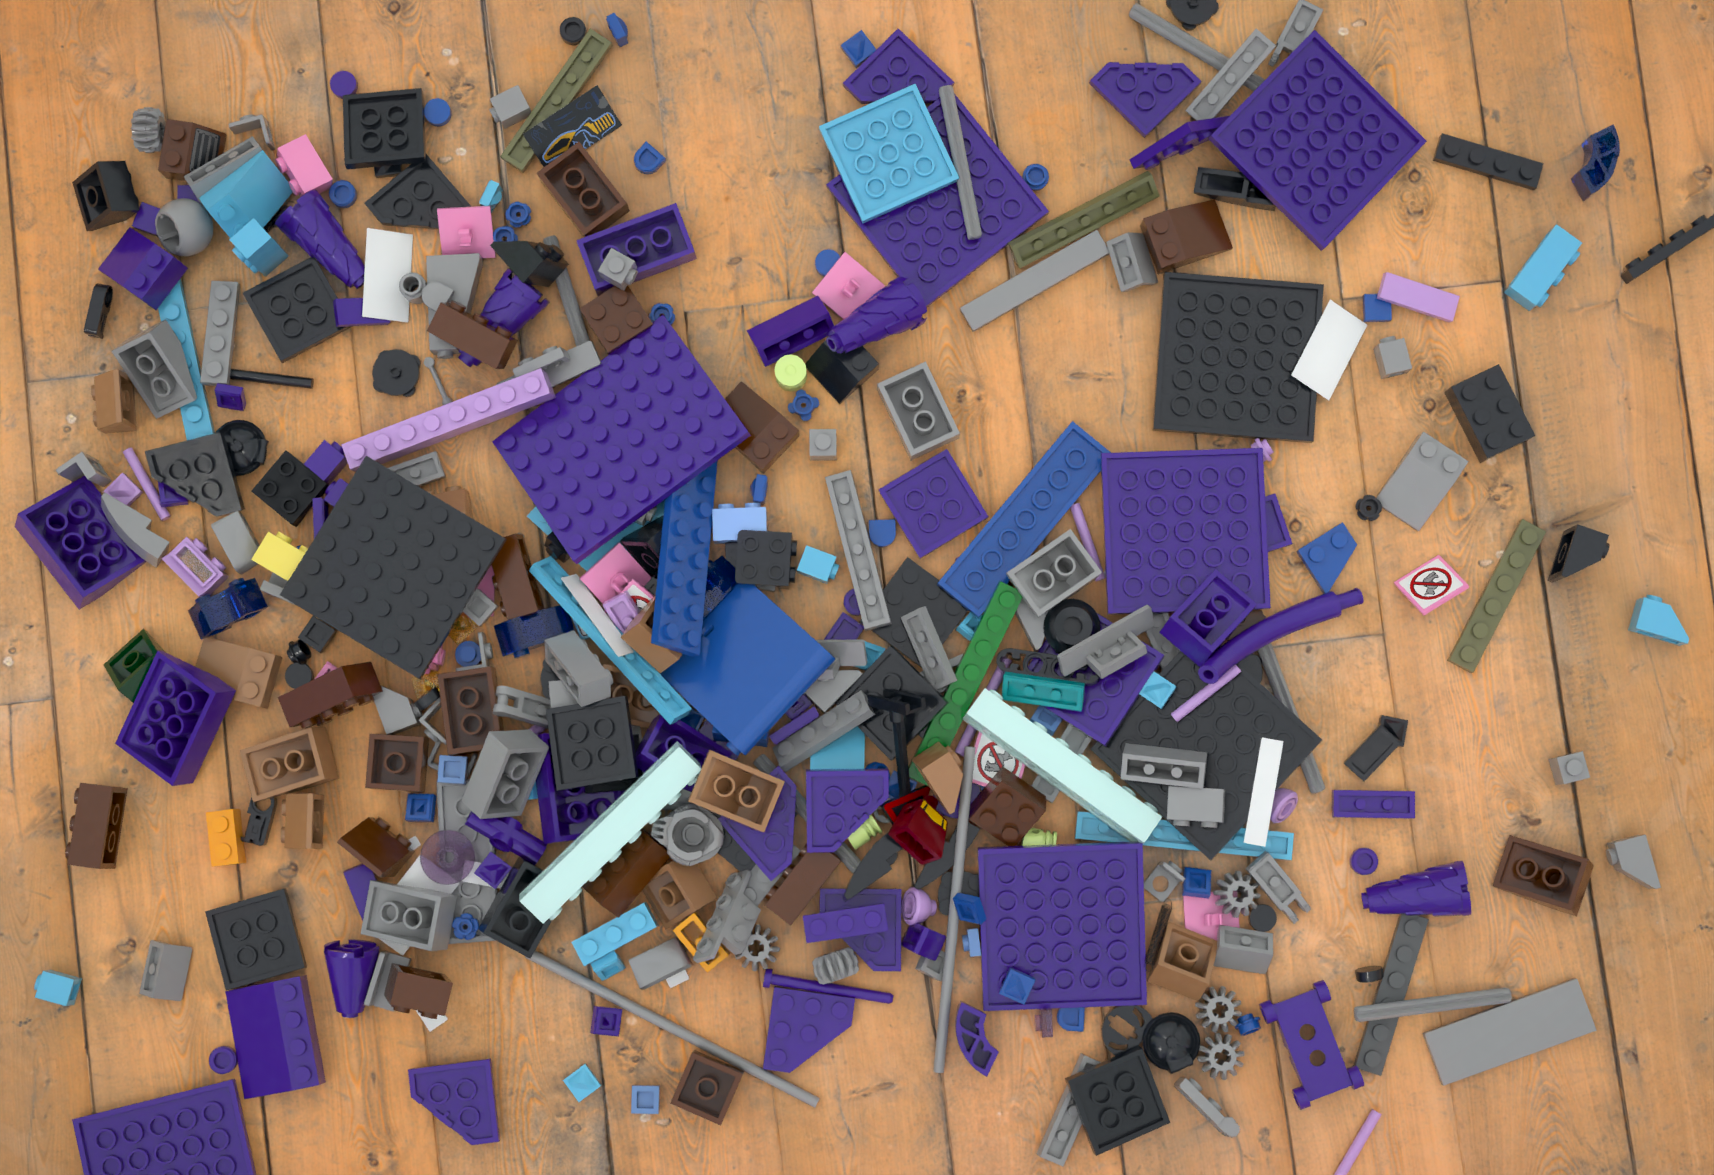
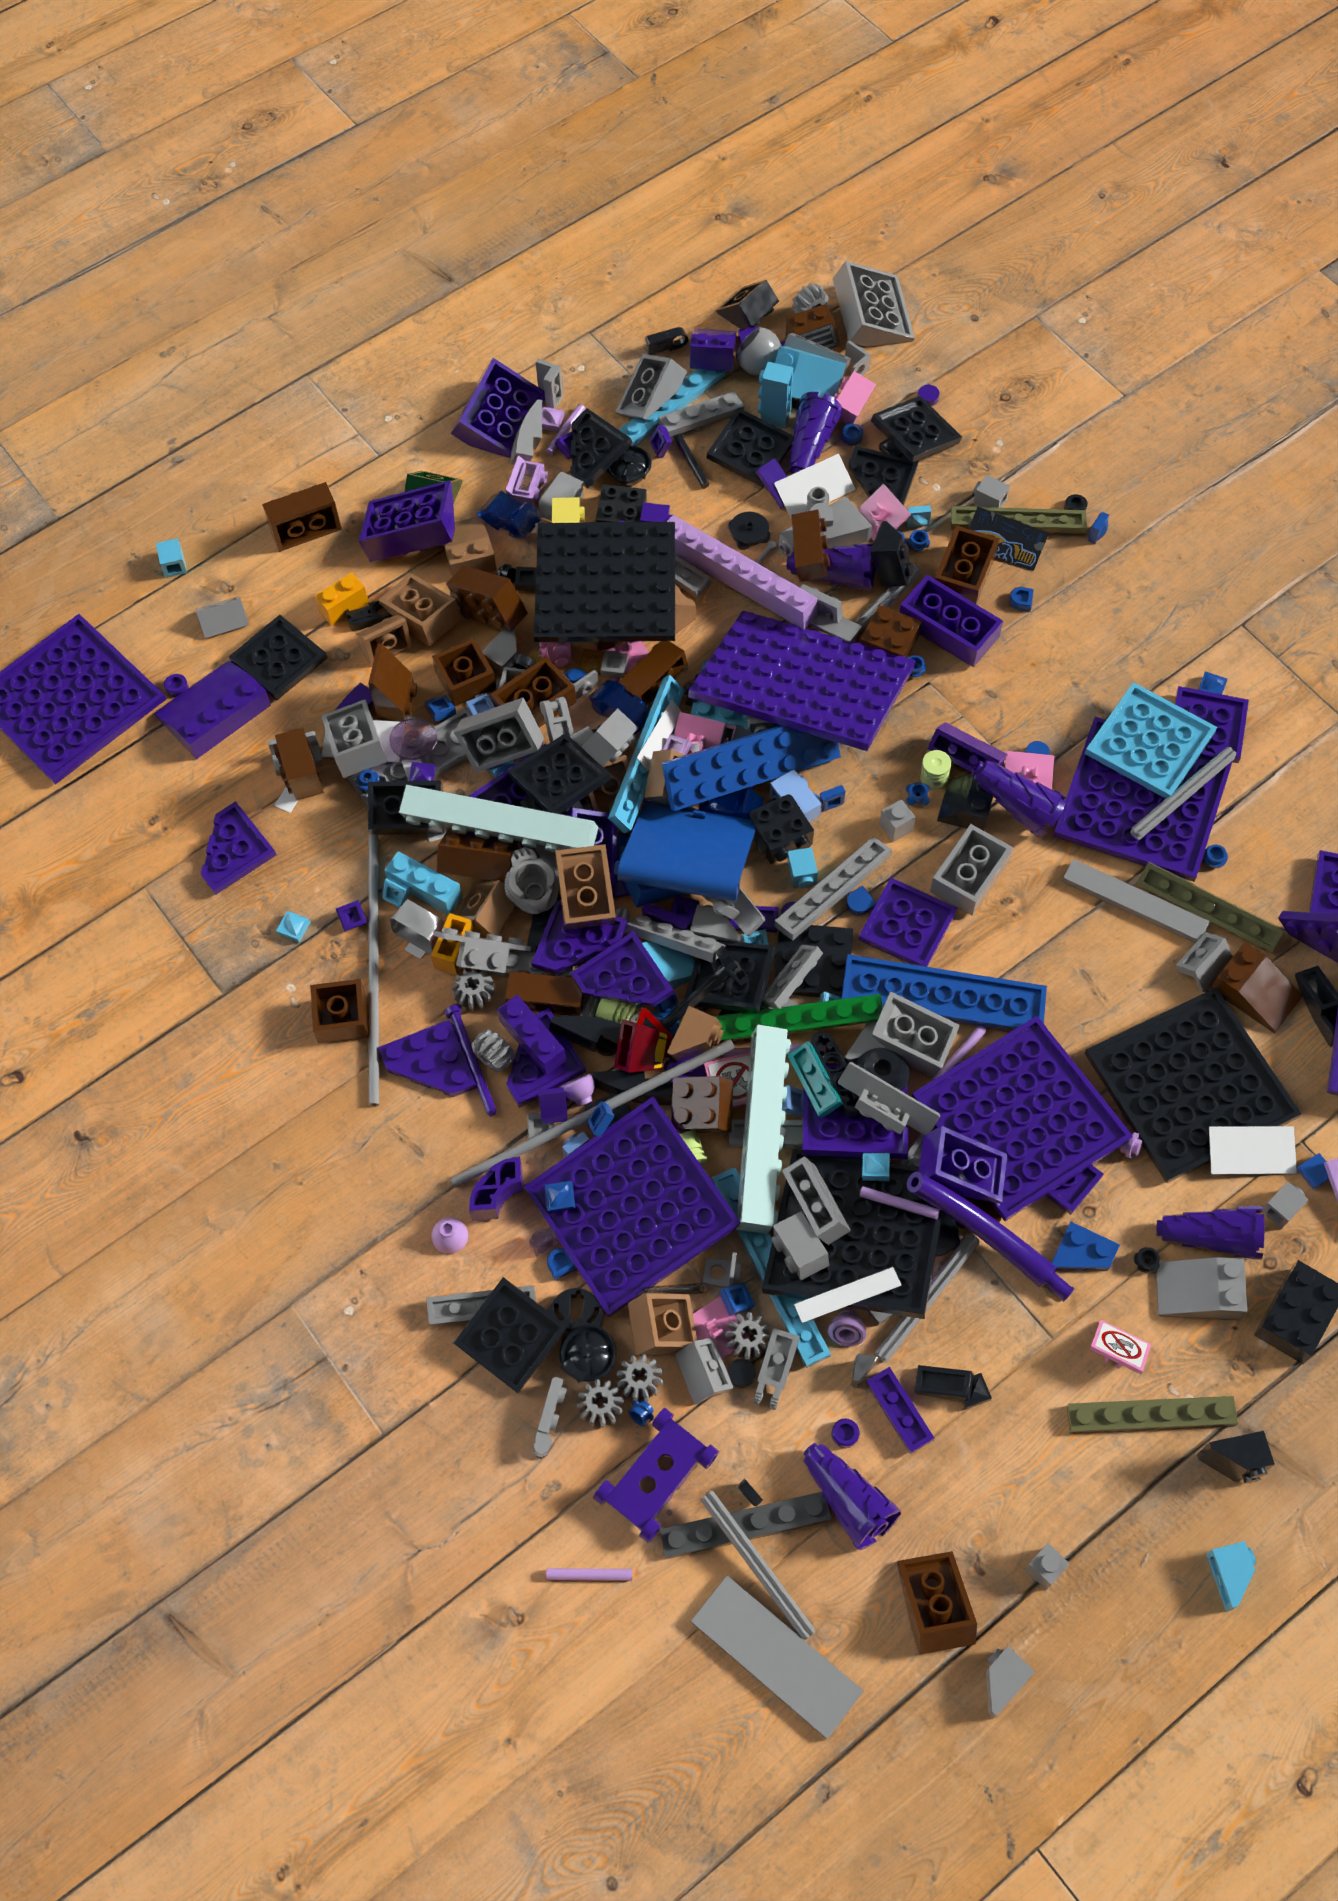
camera: 60 degrees right, 20 degrees down
(114, 402) = (609, 380): medium nougat slope -> none
(193, 66) = (872, 306): none -> light grey slope
(350, 973) = (287, 717): dark purple cone -> none
(437, 112) = (953, 457): blue tile -> none
(508, 835) = (454, 766): dark purple piece -> none
(618, 269) = (925, 604): light grey brick -> none
(645, 1099) = (304, 975): medium blue plate -> none
(768, 428) = (876, 773): reddish brown slope -> none
(986, 1101) = (449, 1235): none -> lavender brick
(1320, 814) = (862, 1366): none -> flat silver slope
(1384, 431) = (1221, 1230): none -> dark purple cone

